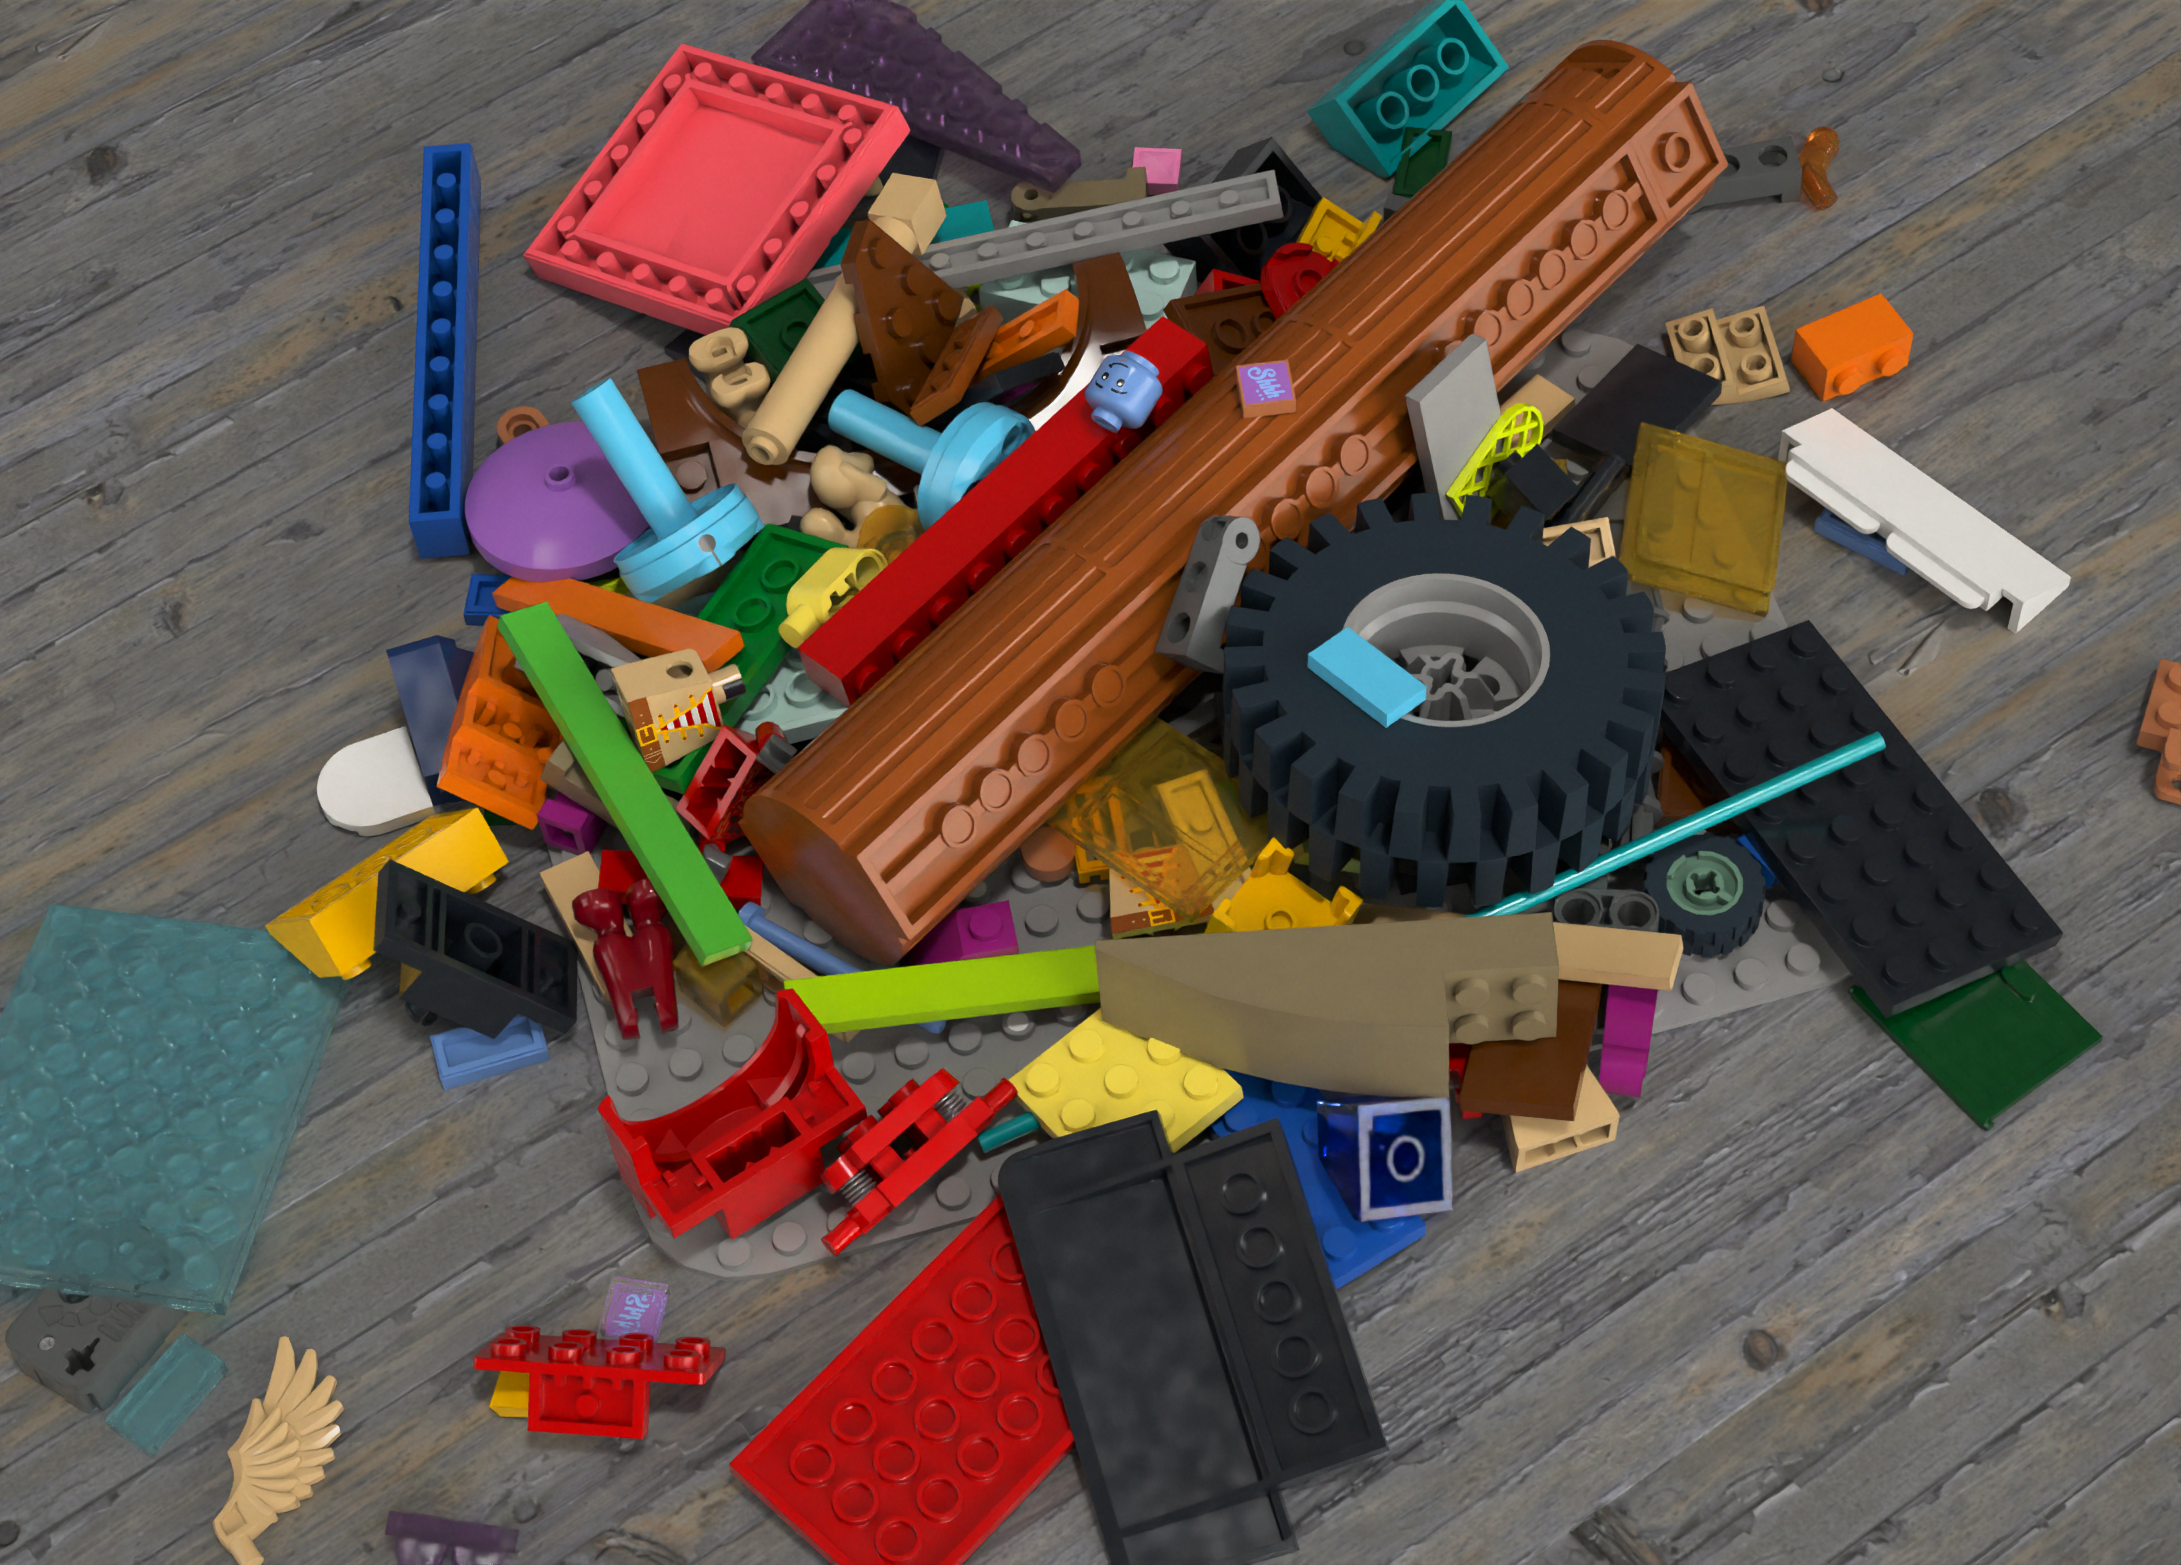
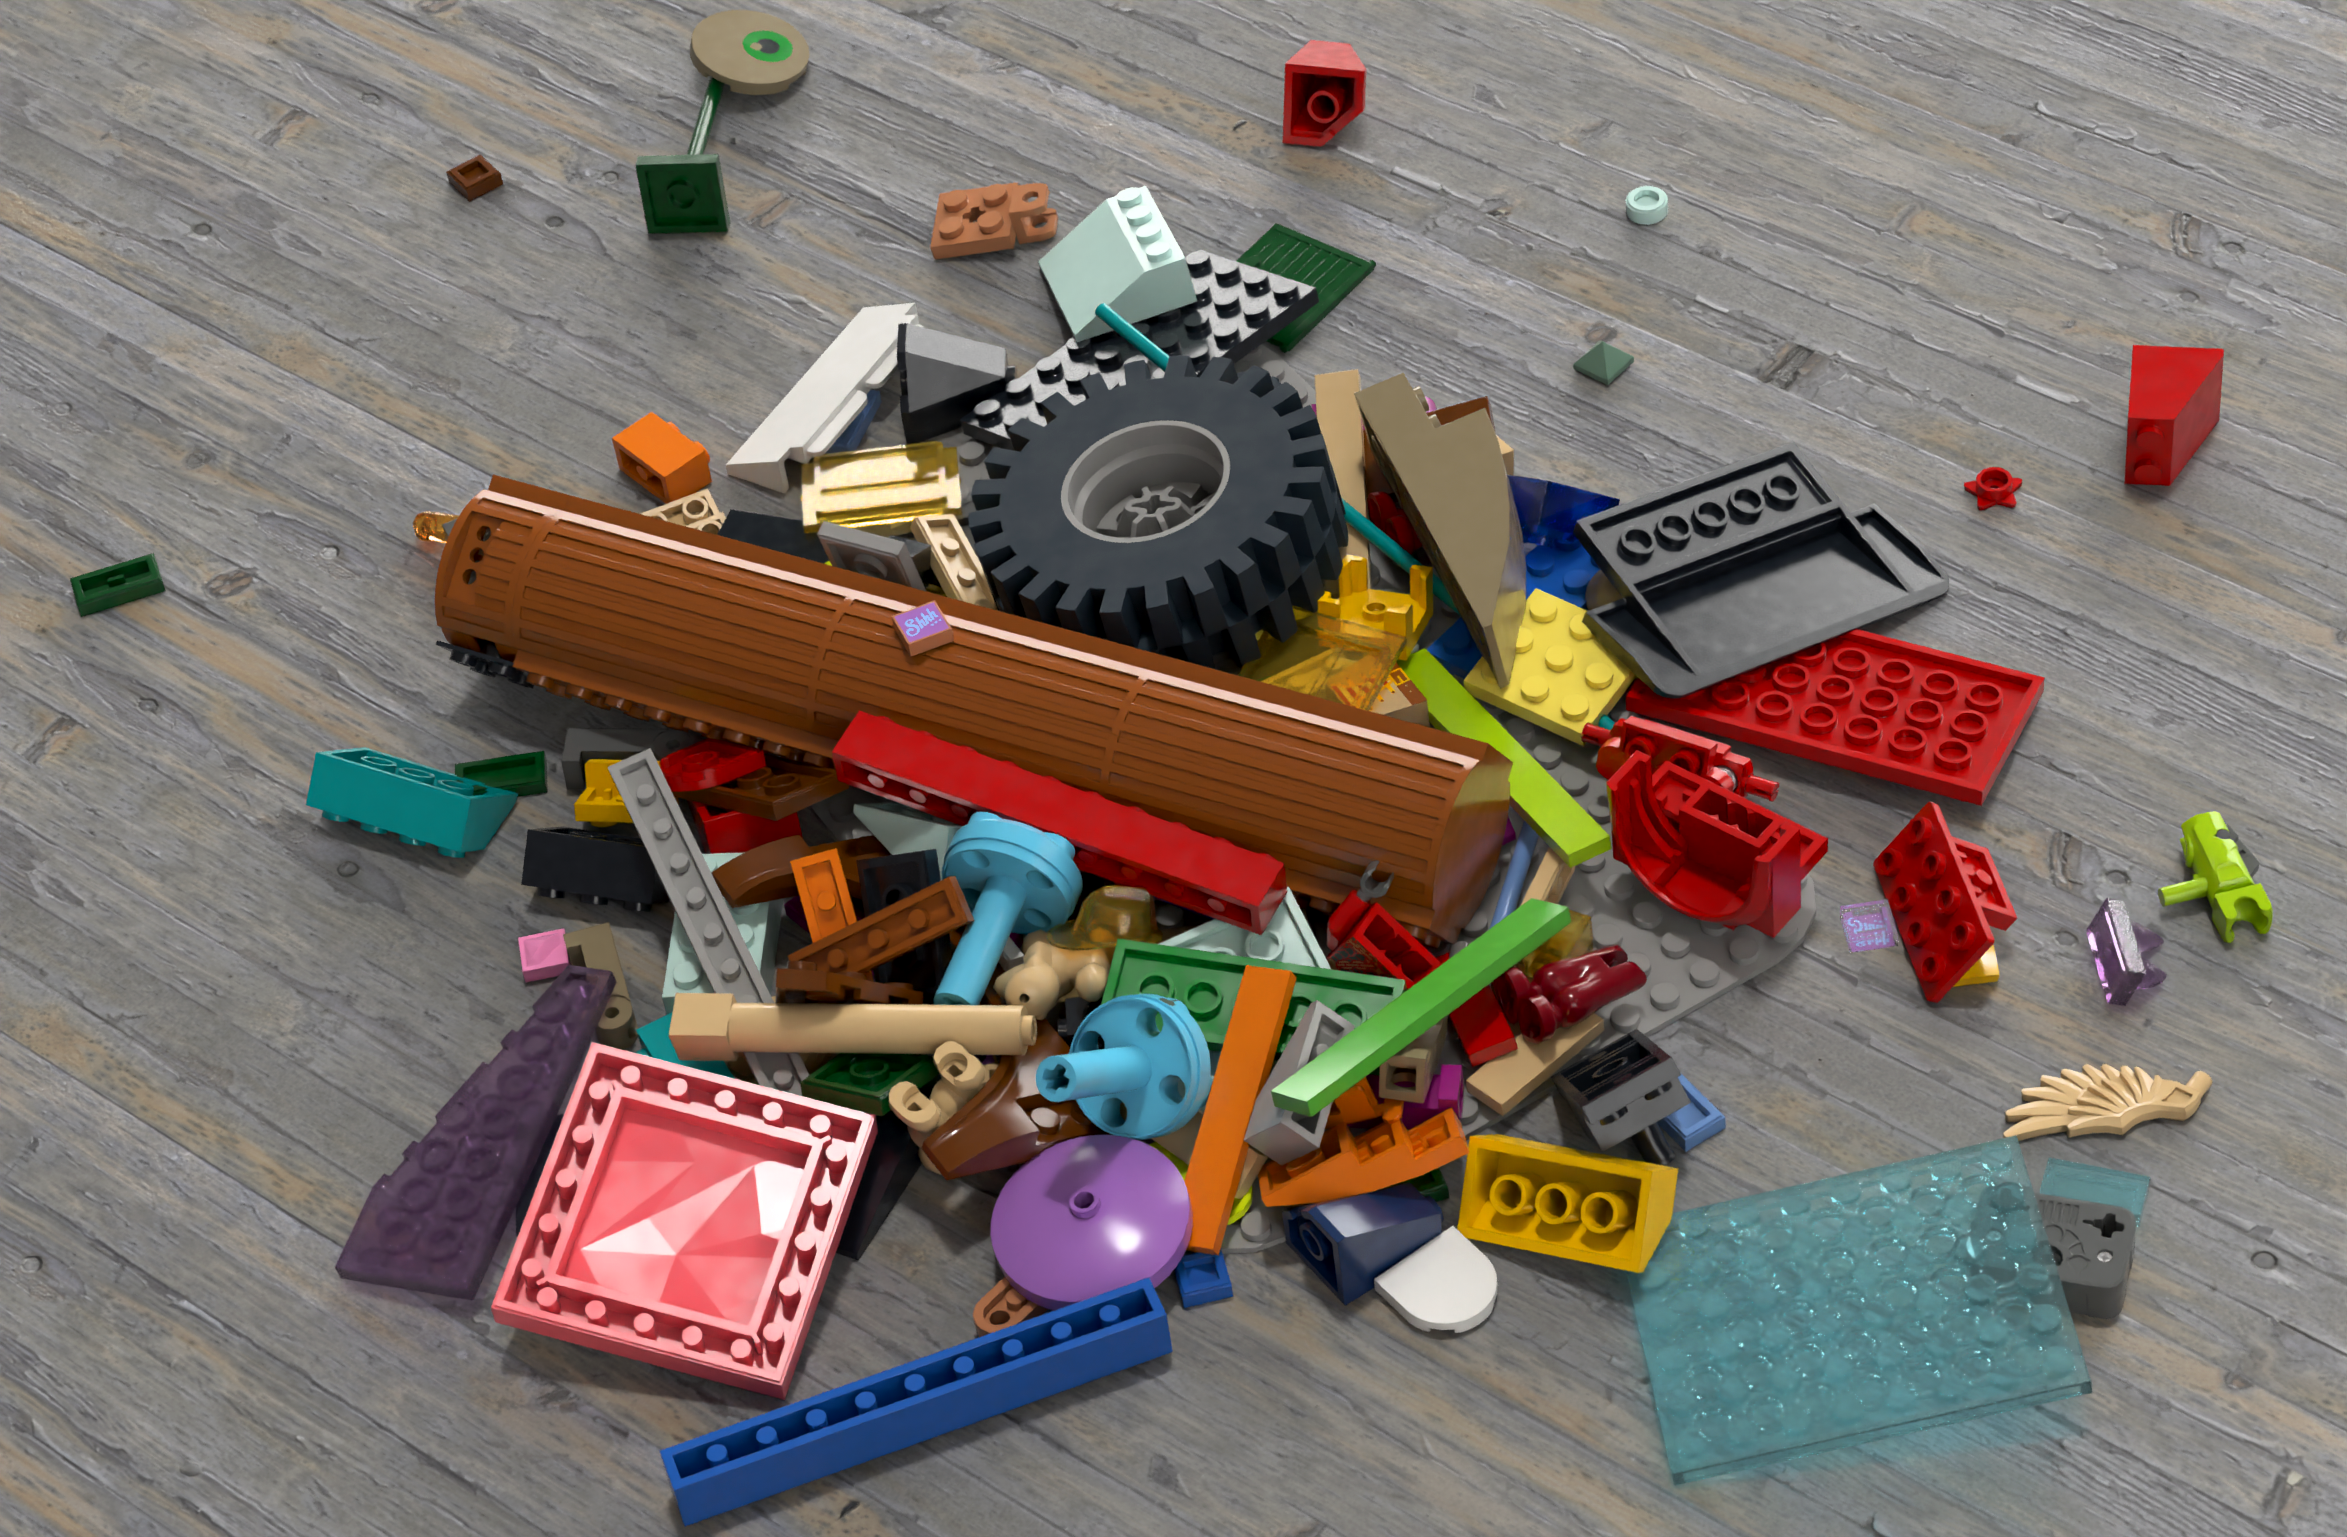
camera: 105 degrees left, 10 degrees down
(673, 703) = (1344, 972): tan torso -> none
(827, 589) = (1180, 921): light yellow piece -> none
(1123, 391) = (941, 730): medium blue head -> none
(1207, 592) = (1131, 627): dark grey leg -> none
(1367, 677) = (1199, 499): medium azure tile -> none
(1696, 1331) = (1603, 362): none -> sand green slope
(1874, 609) = (945, 379): none -> black slope
(2000, 1477) = (1646, 205): none -> light aqua tile
(2023, 825) = (1118, 259): none -> light aqua slope

